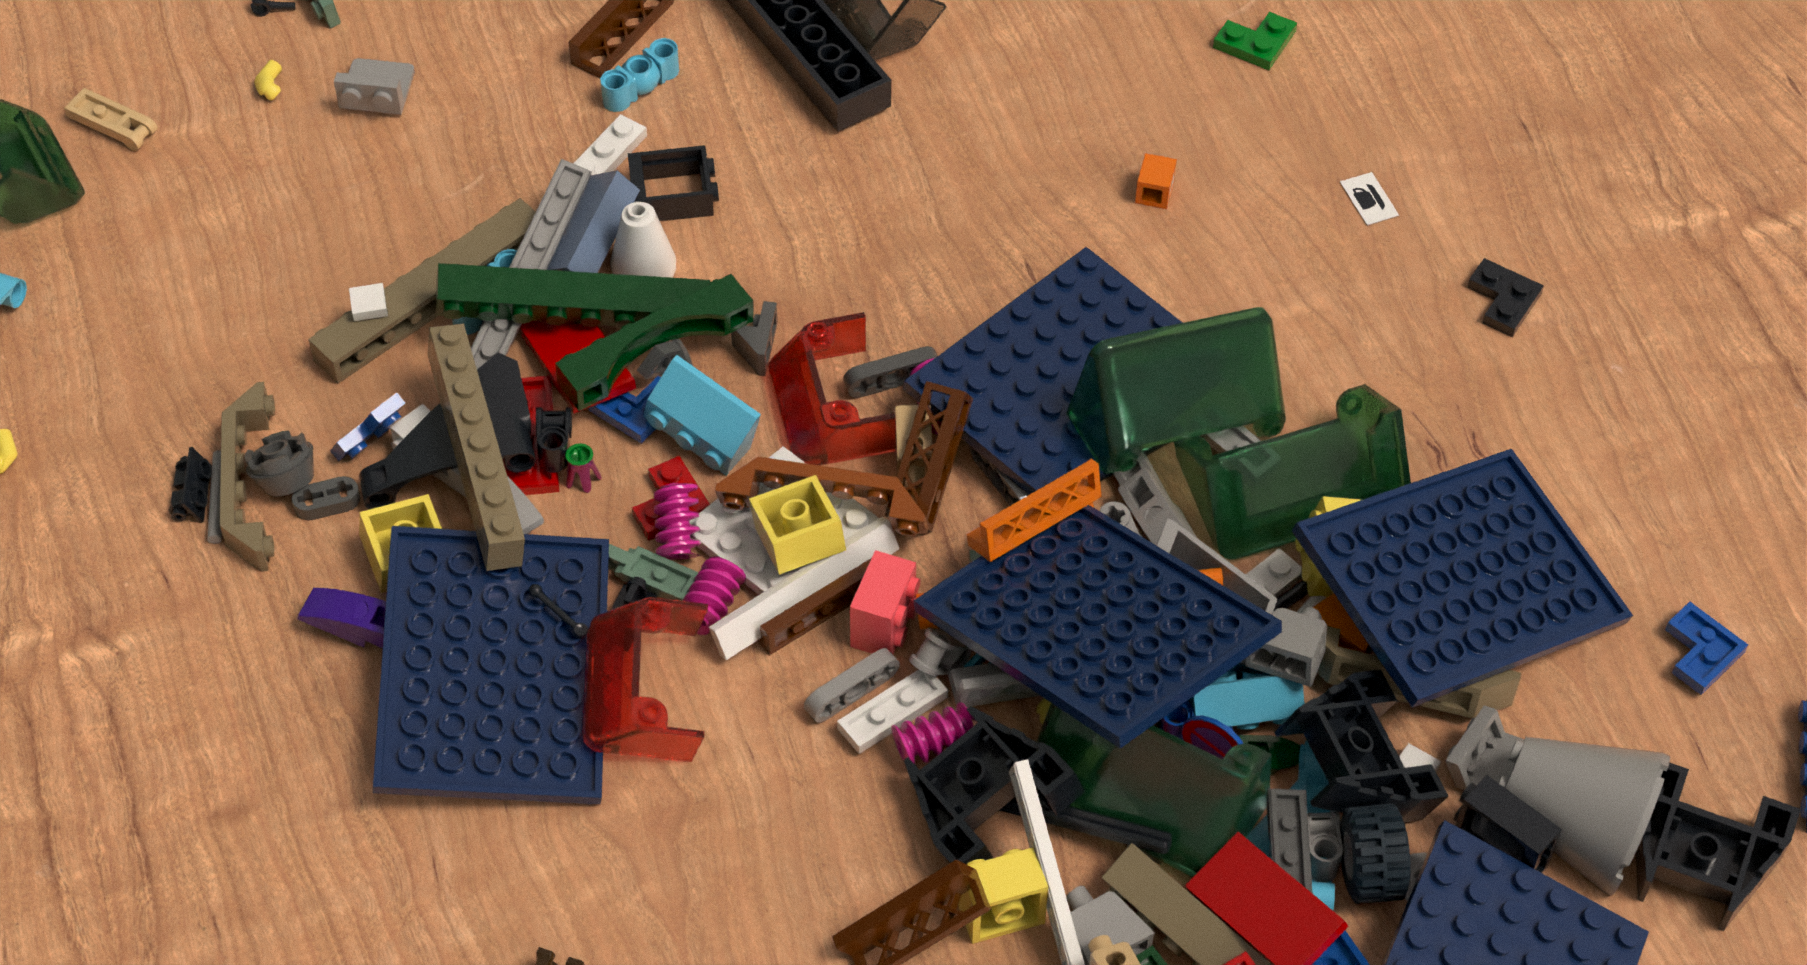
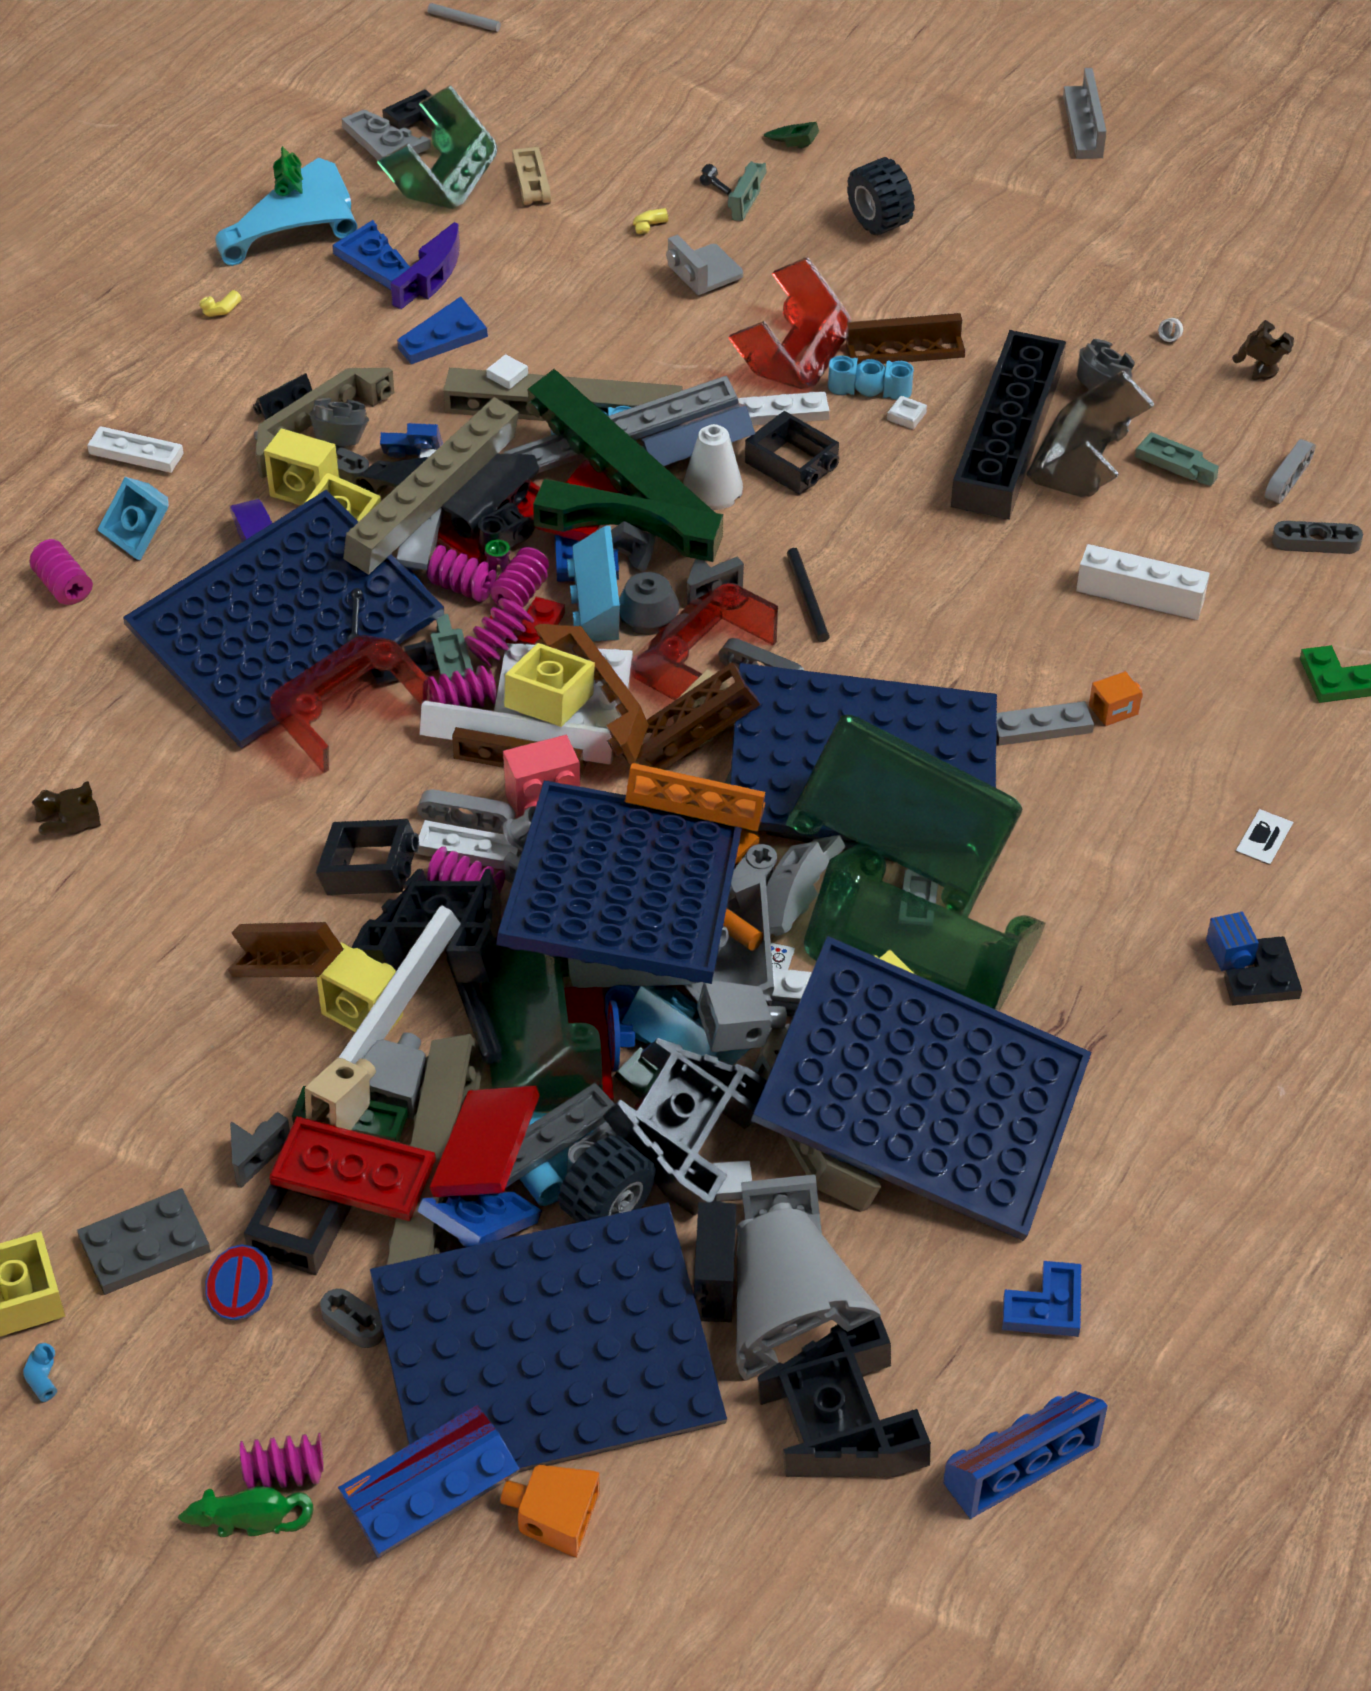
camera: 50 degrees right, 5 degrees down
(76, 299) = (371, 254): none -> blue wing
(126, 642) = (135, 449): none -> white plate
(145, 266) = (432, 270): none -> dark purple slope
(228, 698) = (134, 516): none -> medium azure slope
(232, 806) = (60, 572): none -> dark pink piece
(237, 316) = (442, 332): none -> blue wing
(318, 530) = (297, 465): none -> light yellow brick
(543, 74) = (815, 335): none -> clear red windscreen
(569, 501) = (460, 575): none -> dark pink piece
(623, 467) = (521, 577): none -> dark pink piece
(699, 82) = (906, 412): none -> white tile
(750, 387) = (648, 603): none -> dark grey cone
(837, 288) = (808, 595): none -> black bar
(866, 810) = (341, 878): none -> black window
(1053, 76) = (1142, 582): none -> white brick
(1133, 238) = (1043, 723): none -> light grey plate
(1464, 291) = (1232, 941): none -> blue brick

